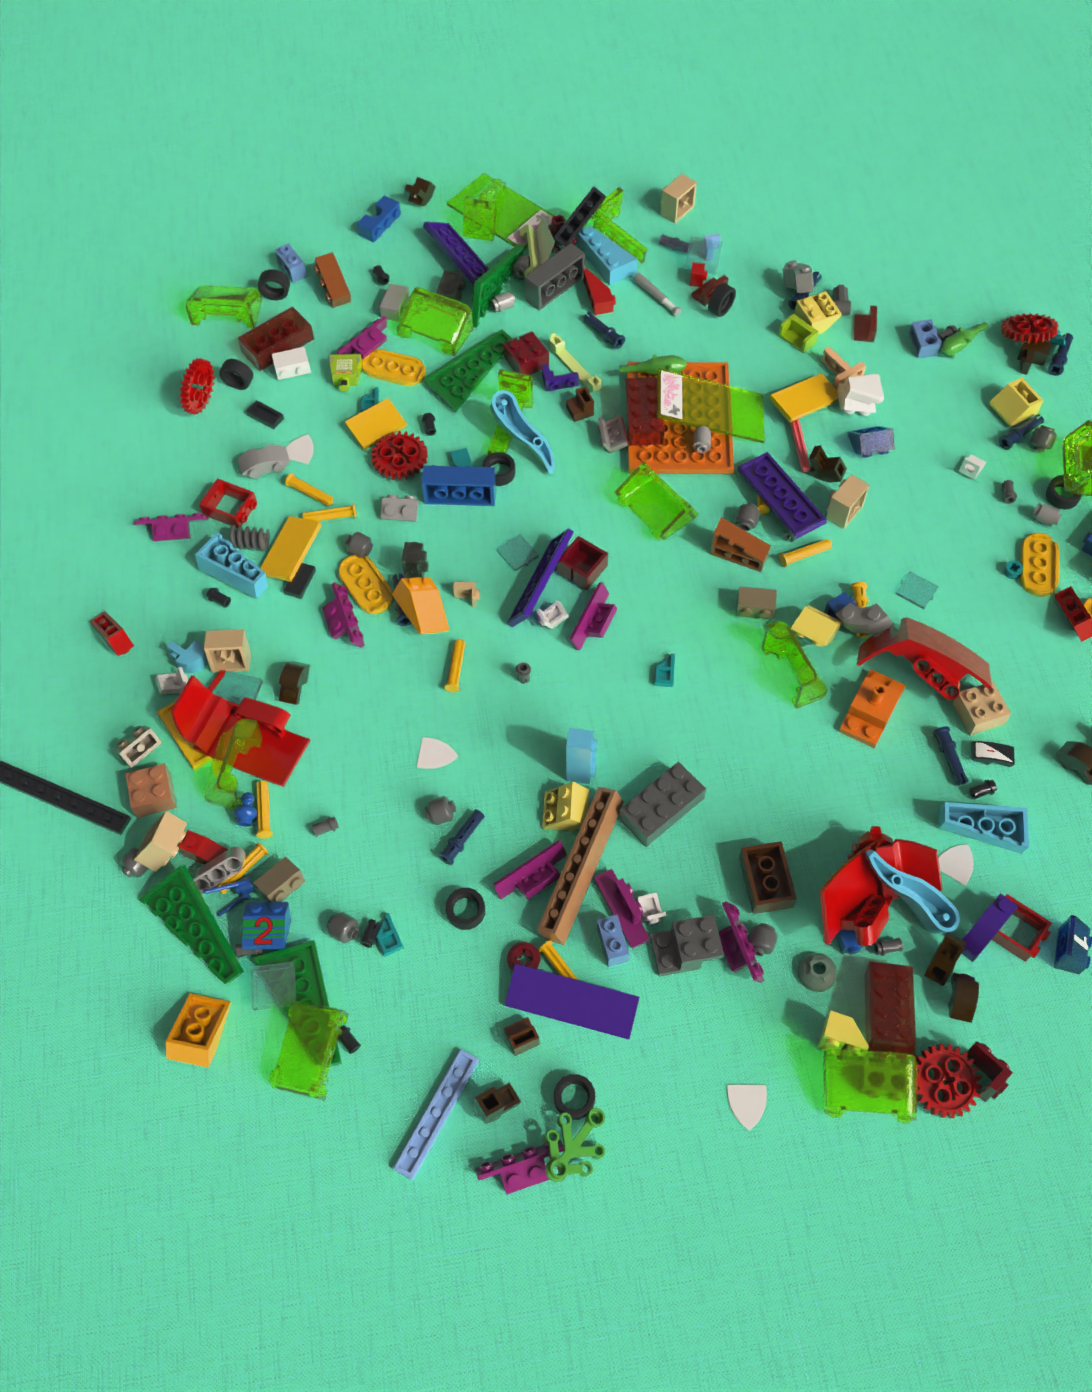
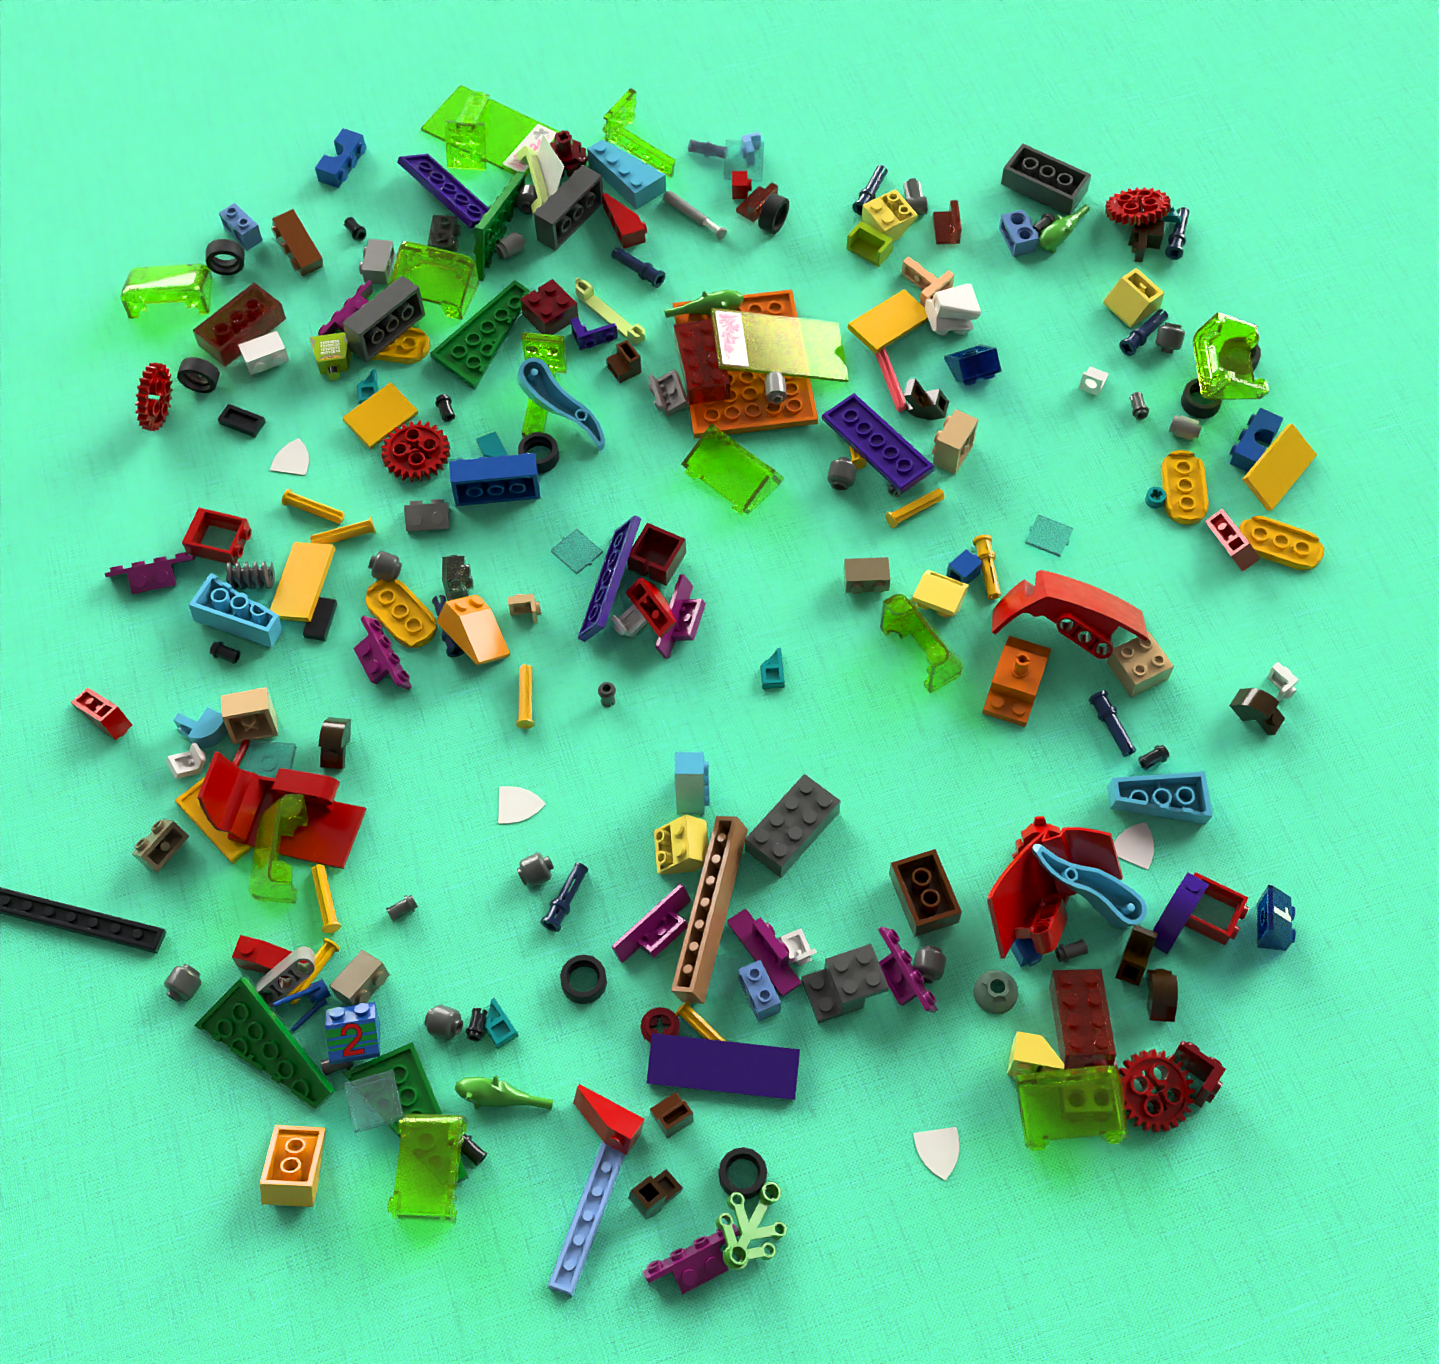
camera: 10 degrees left, 0 degrees up
(151, 790) = (185, 895): nougat brick -> none
(161, 841) = (211, 953): tan brick -> none
(246, 813) = (304, 906): blue animal -> none
(262, 461) = (245, 481): light grey brick -> none
(376, 994) = (496, 1093): none -> bright green piece
(390, 346) = (384, 318): none -> dark grey brick
(421, 191) = (387, 118): dark brown brick -> none
(470, 1036) = (610, 1121): none -> red slope
(571, 604) = (652, 606): none -> red slope
(579, 218) = (588, 133): black brick -> none
(678, 198) = (703, 92): tan brick -> none
(739, 546) = (837, 510): dark orange wedge -> none
(798, 277) = (860, 175): light grey brick -> none
(865, 619) = (993, 579): light grey brick -> none
(954, 297) = (1045, 179): none -> dark grey brick
(992, 752) = (1159, 713): slope -> none

